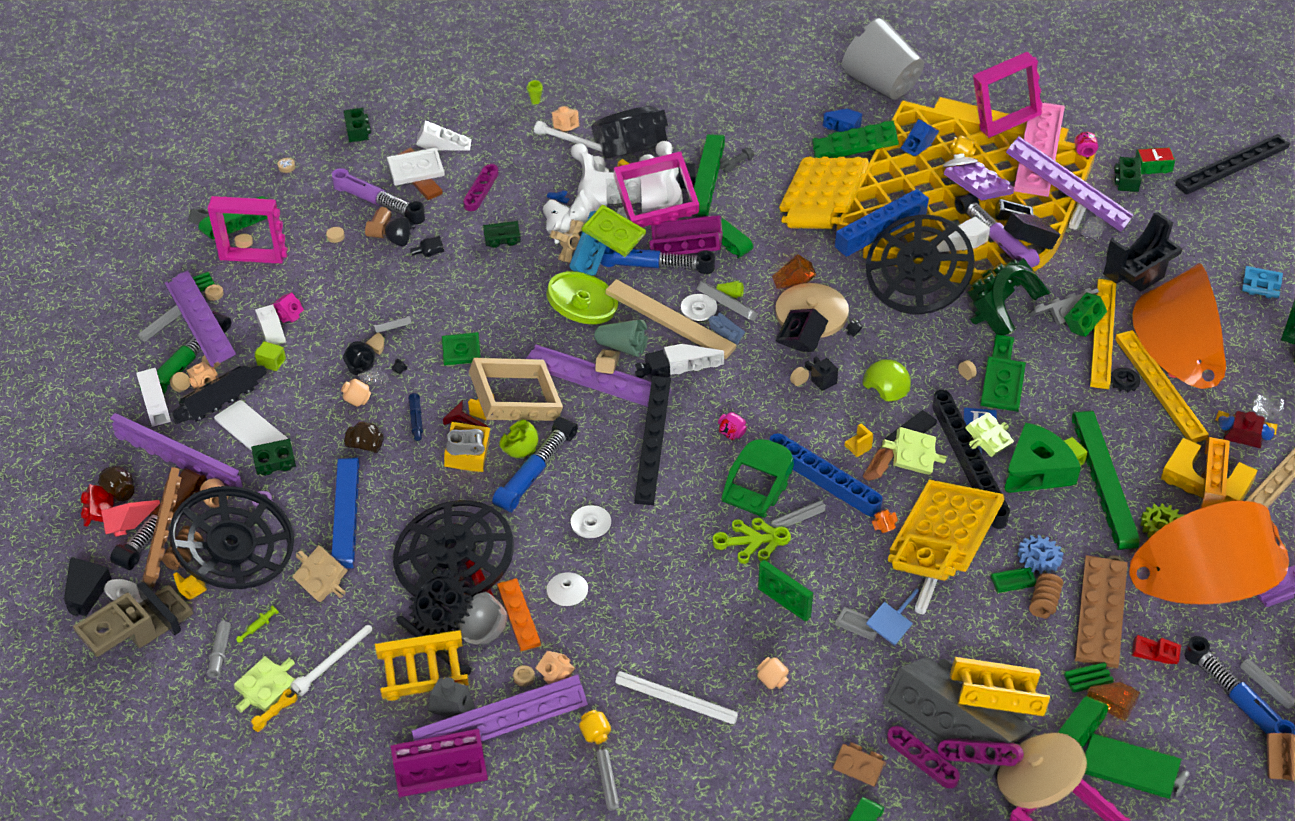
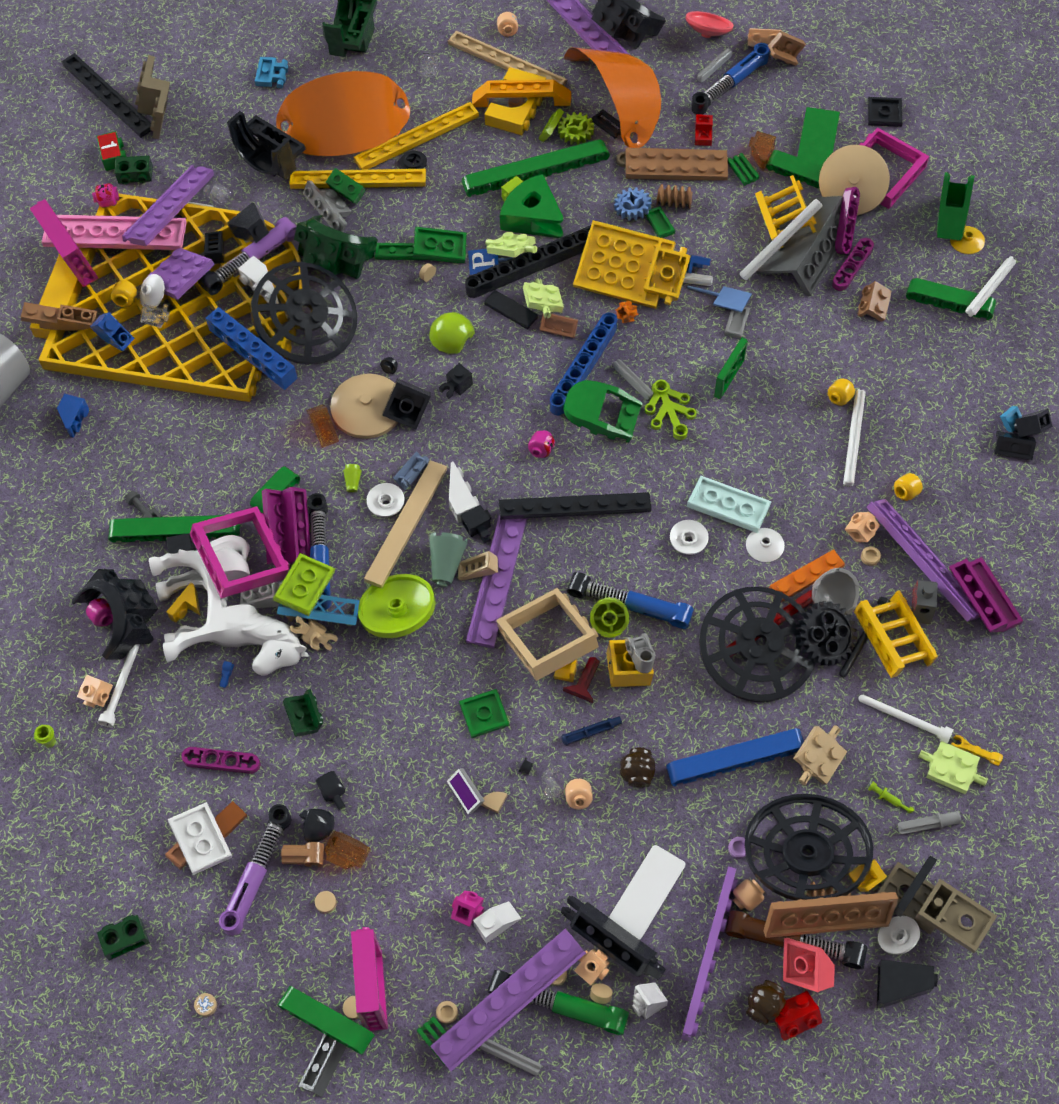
camera: 100 degrees left, 15 degrees up
(270, 356) = (541, 906): lime brick -> none
(273, 452) = (682, 851): dark green brick -> none
(359, 357) = (526, 806): black hair -> none
(370, 248) = (346, 851): none -> clear orange slope
(444, 139) = (141, 825): white slope -> none
(607, 779) = (950, 470): light grey axle -> none
(621, 565) = (729, 504): none -> light aqua tile
(727, 300) = (372, 476): light grey beam -> none
(736, 694) = (841, 392): none -> yellow head
(772, 673) = (811, 369): light nougat head -> none
(799, 376) = (463, 400): tan tile -> none
(822, 191) = (193, 415): yellow plate -> none
(856, 140) = (109, 395): green hinge -> none
(861, 442) = (536, 342): yellow panel -> none
(934, 165) = (154, 315): none -> clear bracket
(943, 105) = (62, 318): none -> medium nougat slope
(947, 595) = (697, 261): none -> blue bracket
(951, 664) = (781, 239): none -> white axle
(1167, 500) = (551, 124): none -> lime tile
(1217, 185) = (152, 96): none -> dark tan bracket
(1246, 428) = (462, 77): dark red torso -> none

